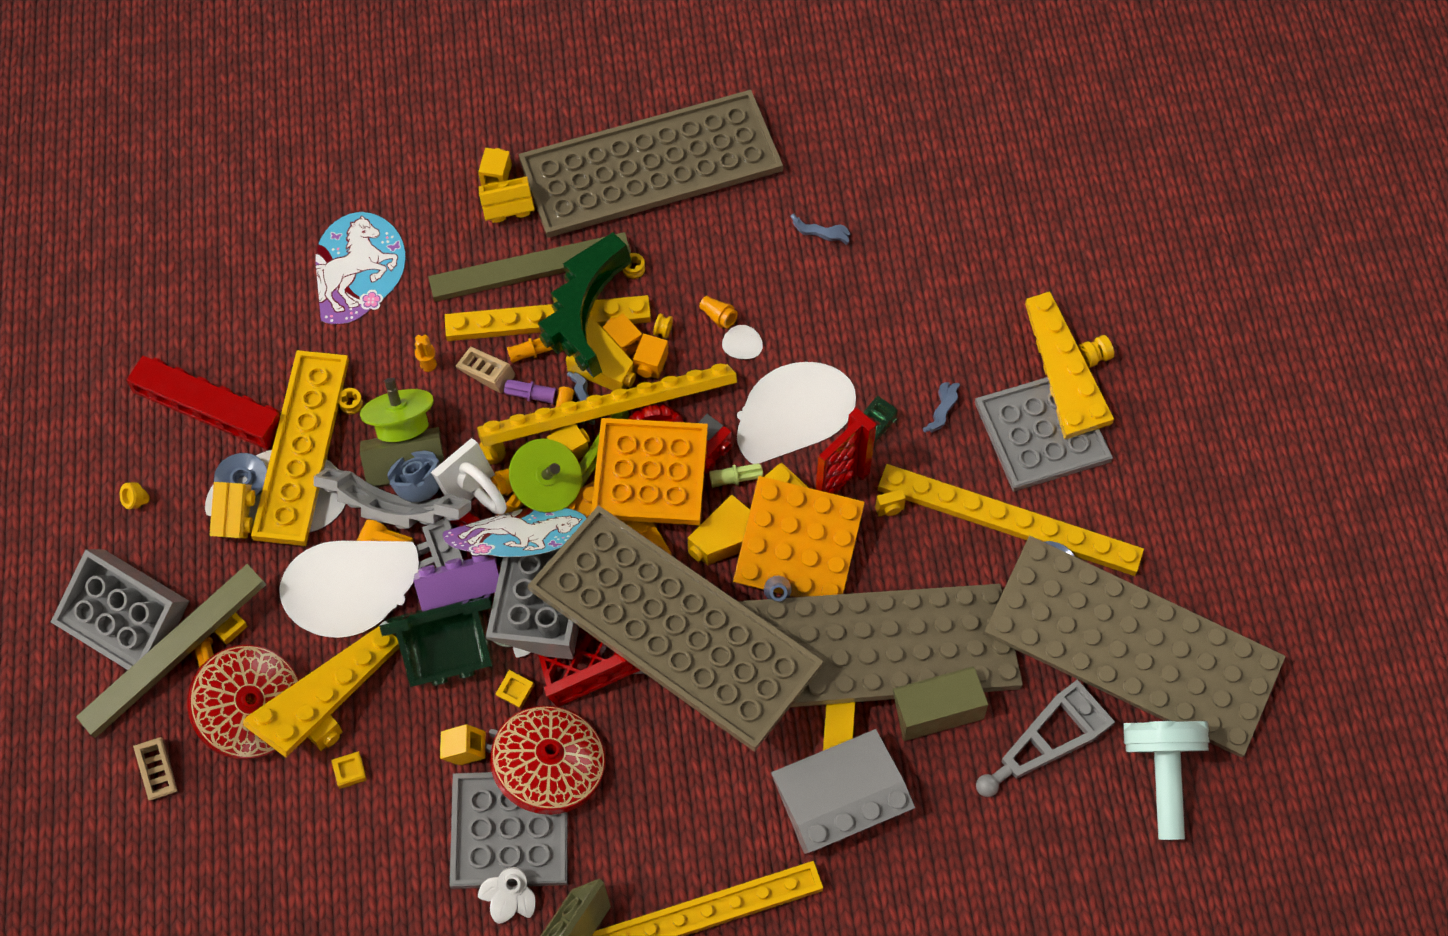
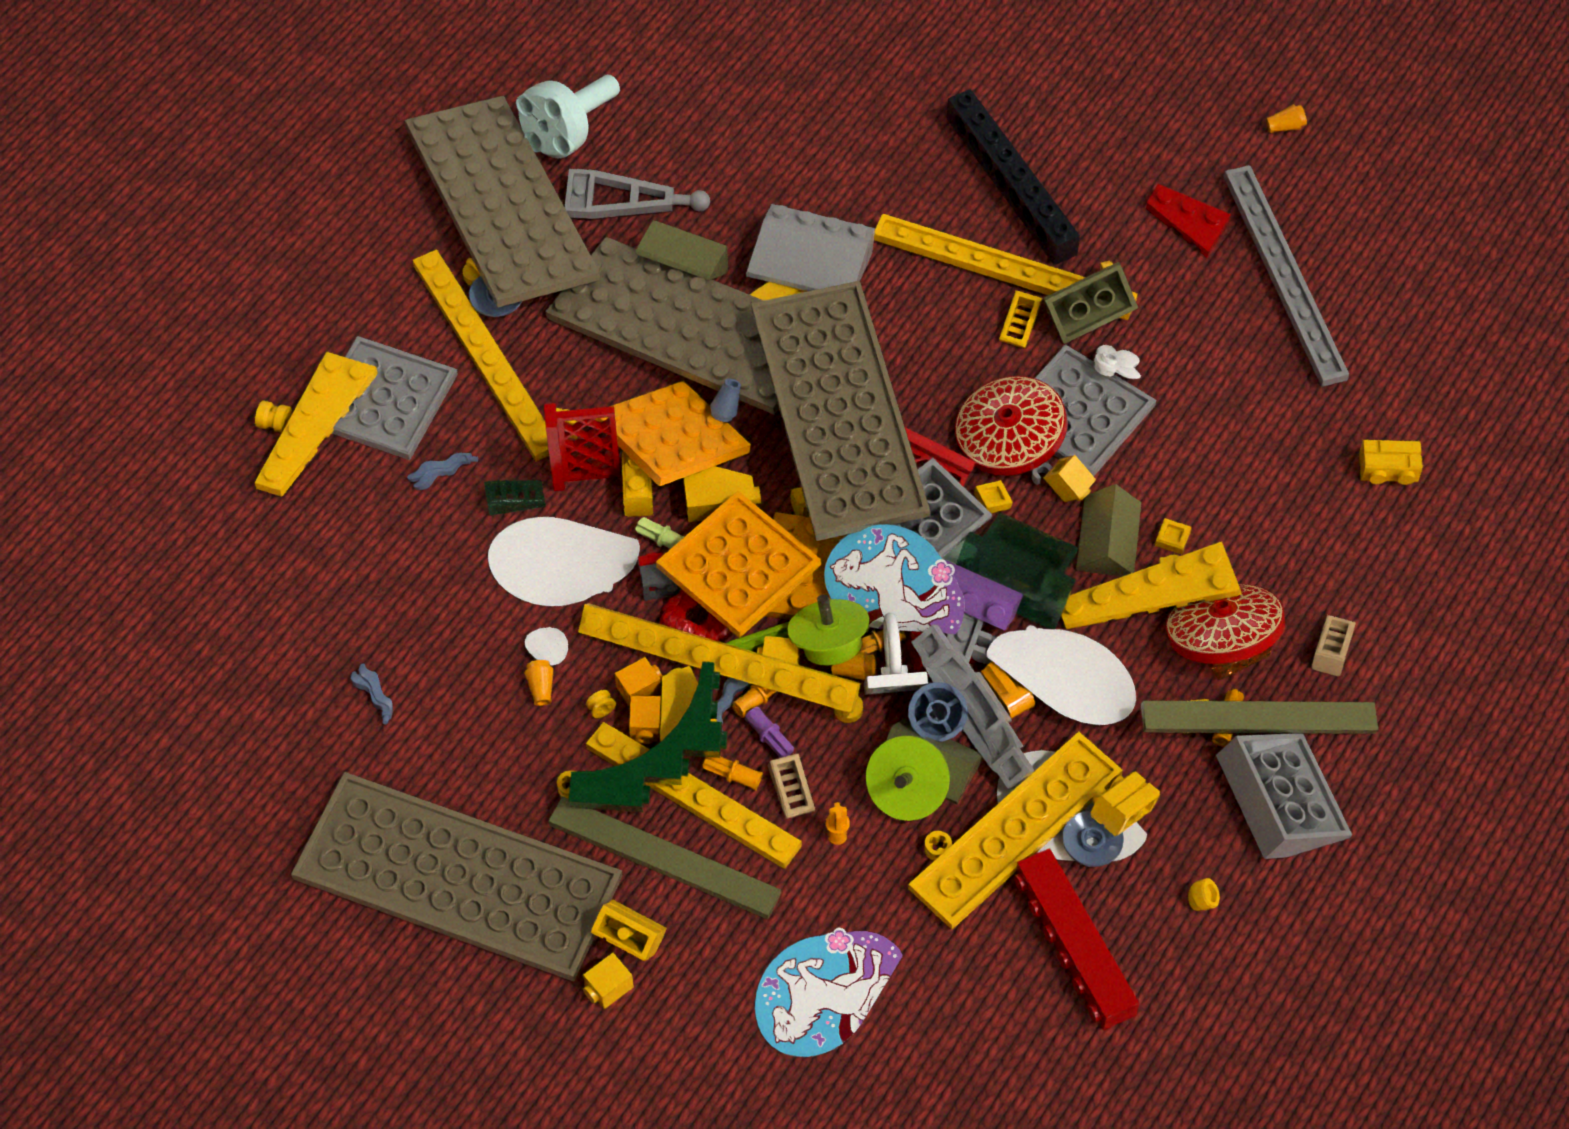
camera: 140 degrees left, 5 degrees down
(400, 730) = (1109, 532): none -> olive slope
(630, 897) = (1027, 301): none -> yellow slope

